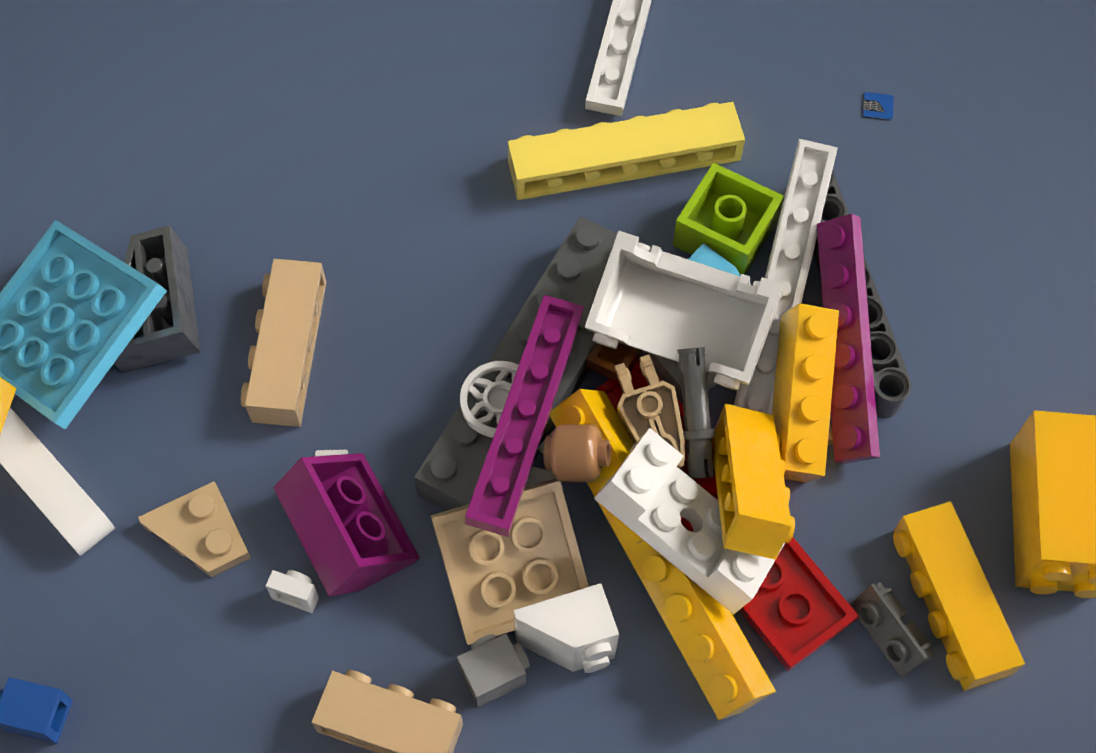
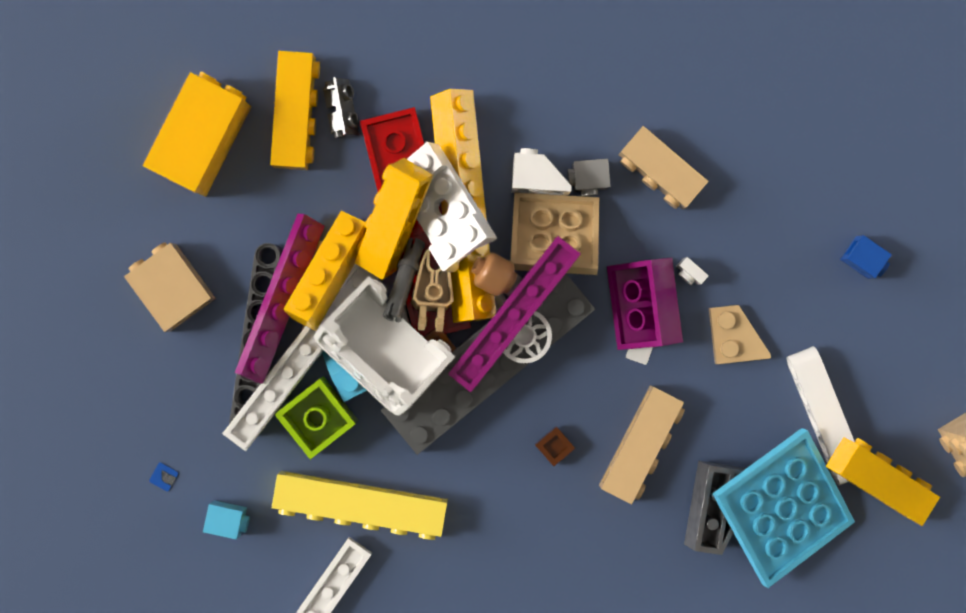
camera: 160 degrees left, 25 degrees up
(402, 301) = (555, 446): none -> reddish brown plate
(780, 79) = (226, 520): none -> medium azure brick
(995, 309) = (169, 286): none -> tan brick

